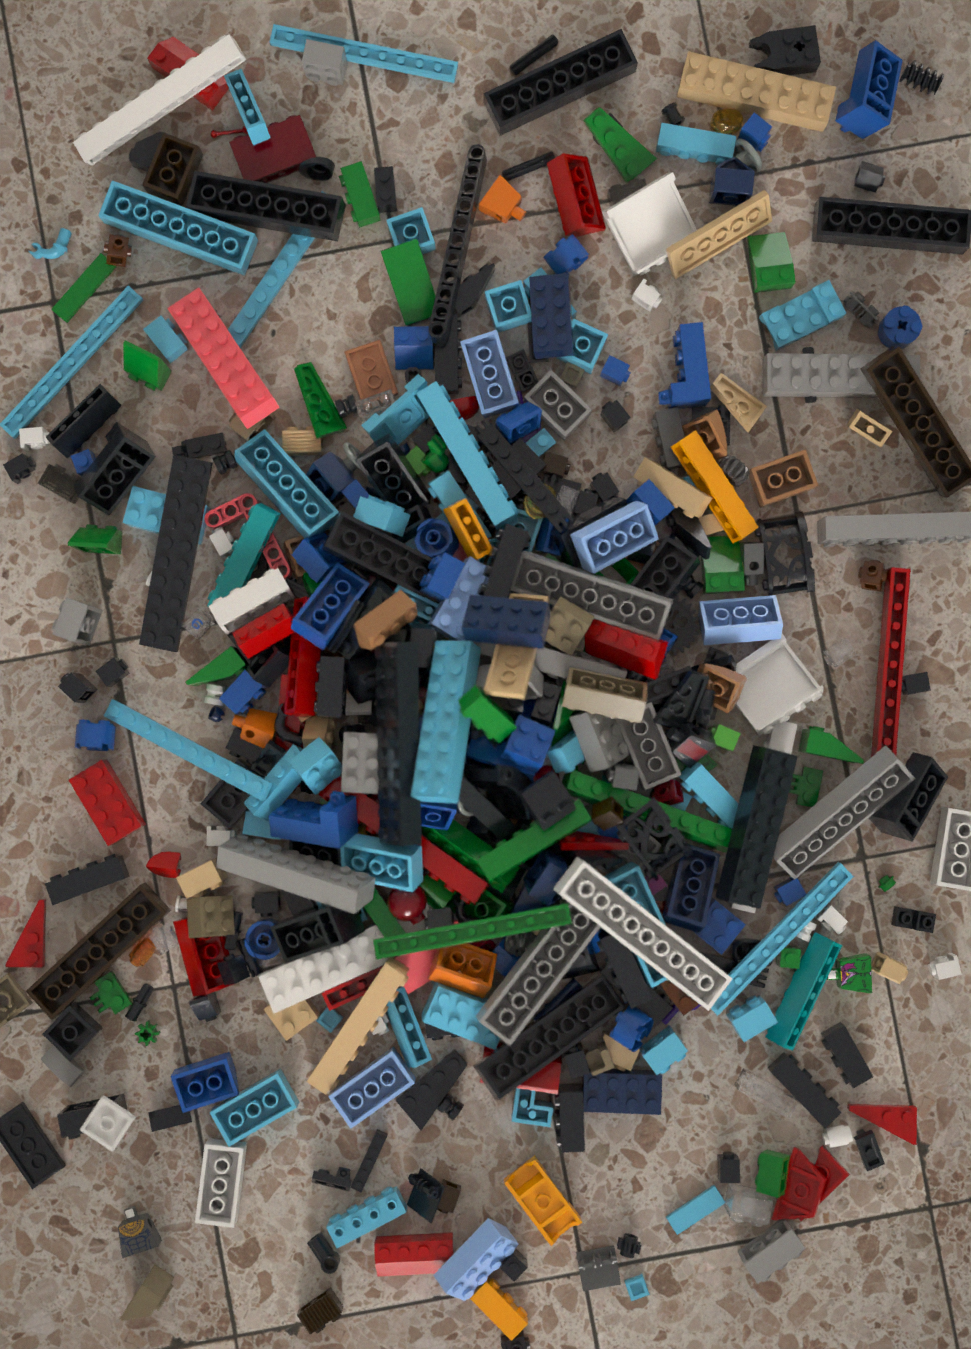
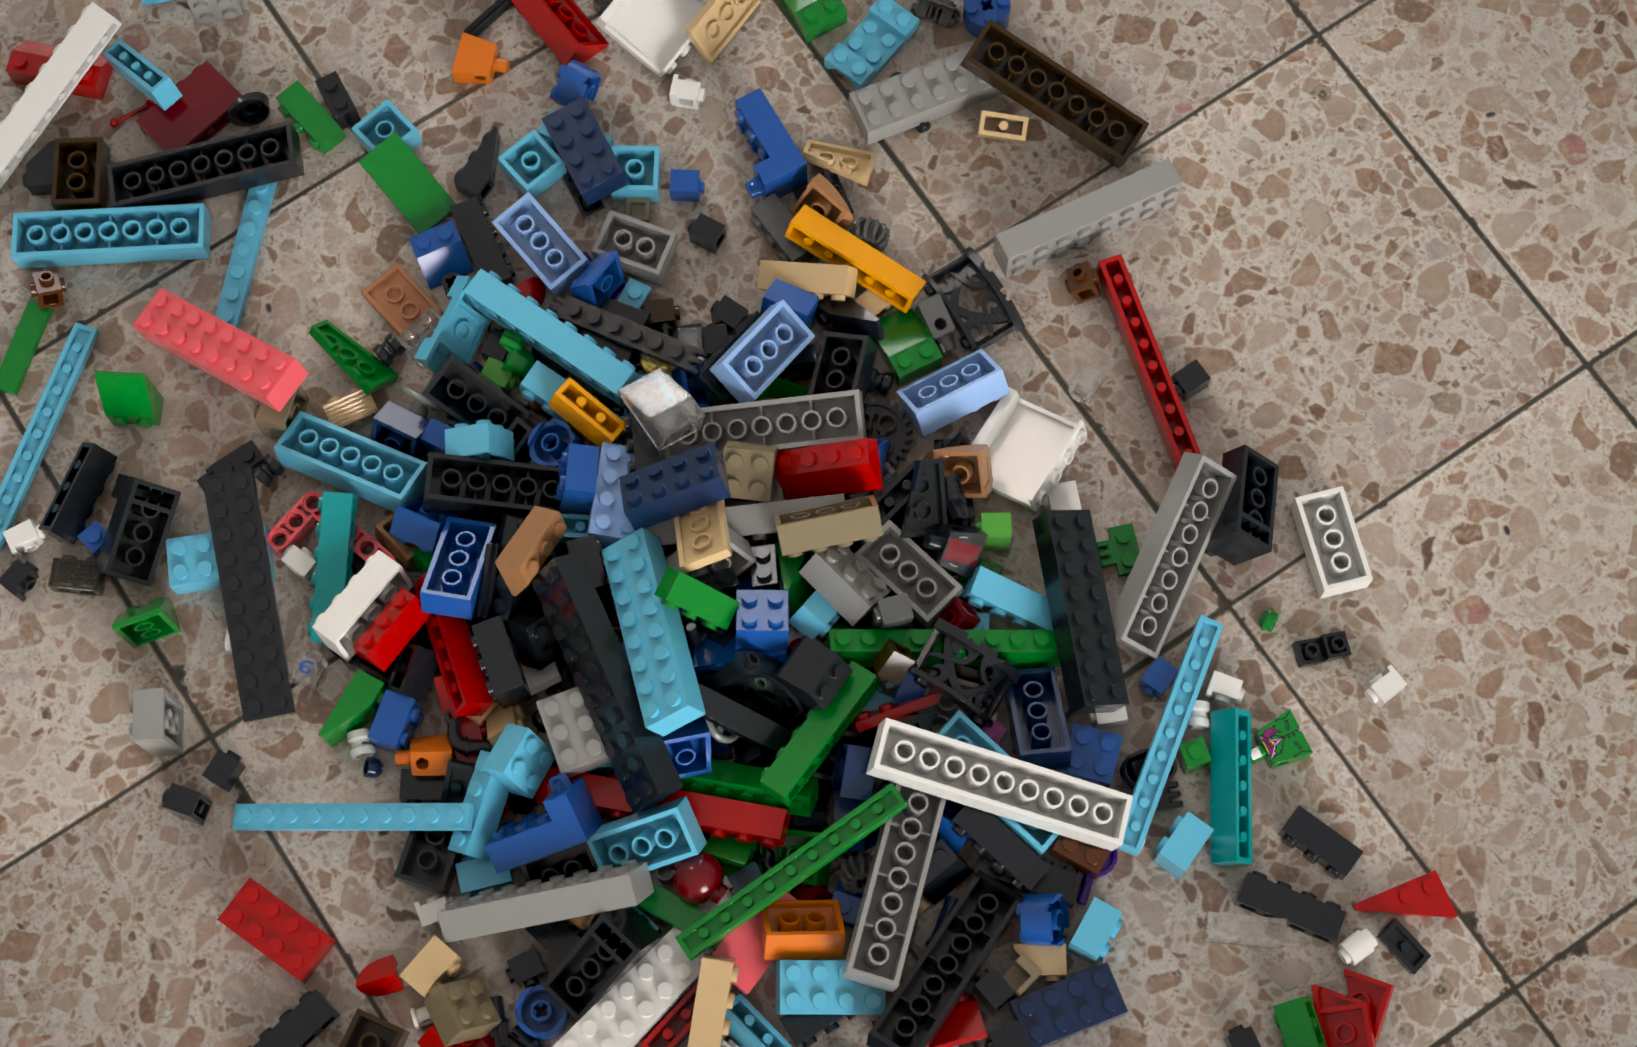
camera: 25 degrees left, 15 degrees down
(95, 736) = (231, 853): blue brick -> none
(165, 338) = (139, 358): medium azure brick -> none
(459, 253) = (446, 133): black beam -> none
(522, 370) = (578, 229): black slope -> none
(523, 552) = (662, 408): none -> clear slope
(782, 478) = (930, 220): medium nougat brick -> none
(824, 744) = (1122, 490): green slope -> none
(889, 968) = (1318, 713): tan brick -> none

